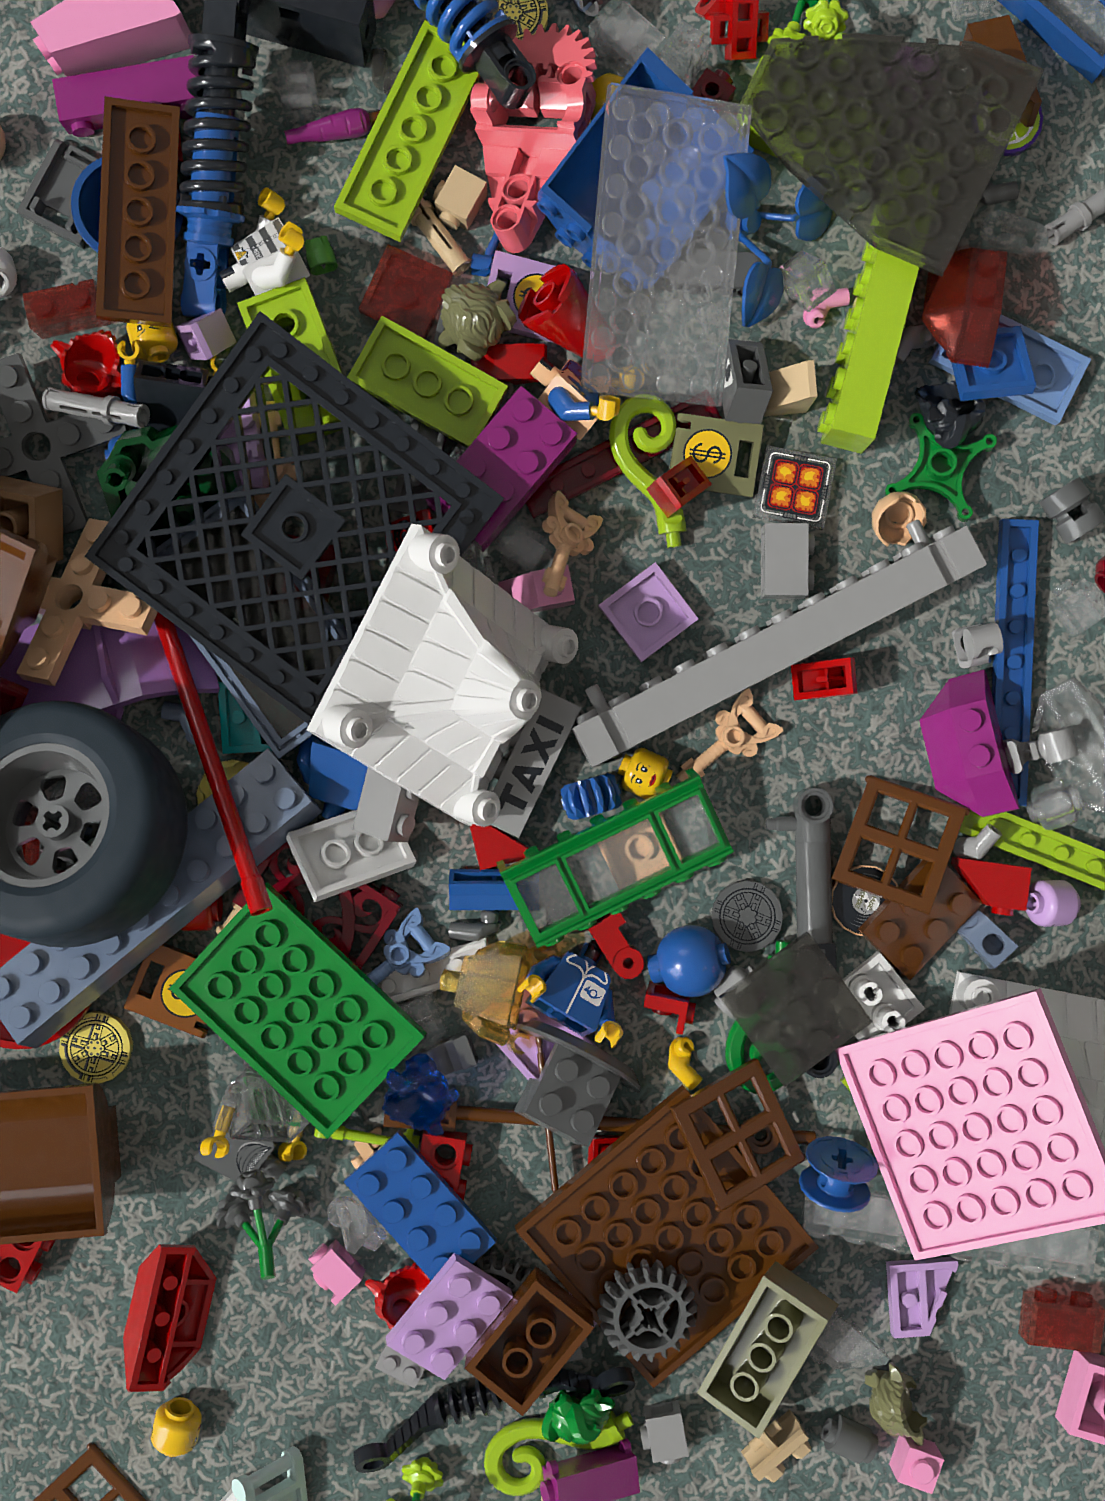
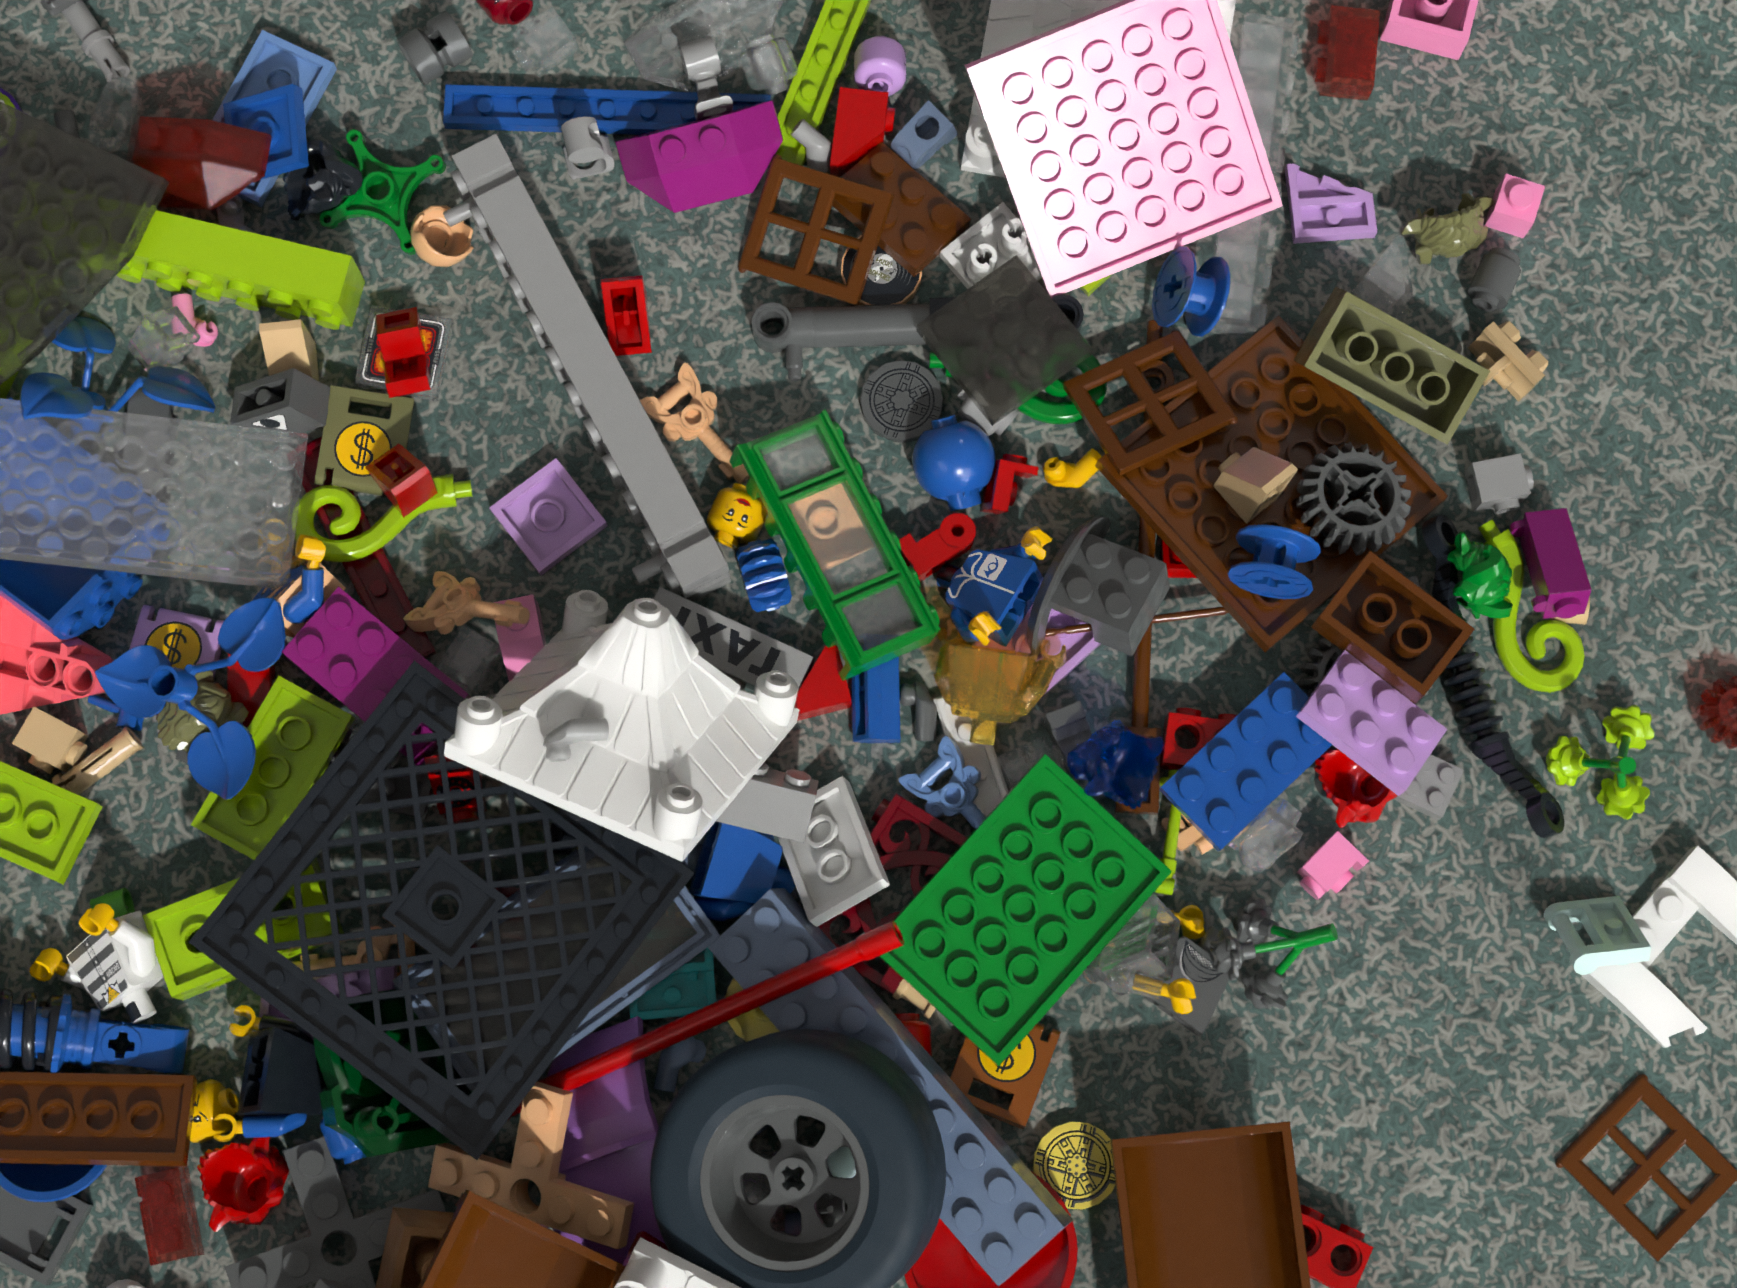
camera: 90 degrees left, 10 degrees down
(108, 409) = (297, 1149): light grey pin -> none
(166, 1316) = (1390, 1067): red wedge -> none
(176, 1427) = (1526, 1053): yellow head -> none
(206, 335) = (209, 1042): lavender slope -> none
(406, 291) = (158, 805): clear red plate -> none
(420, 635) = (571, 732): none -> light grey arm
(499, 268) = (145, 680): none -> blue plant
(558, 309) = (189, 616): red cone -> none
(585, 1239) = (1274, 561): none -> blue piece
(660, 1226) = (1253, 481): none -> tan slope
(786, 560) = (489, 361): light grey brick -> none
(791, 487) = (403, 352): none -> red slope

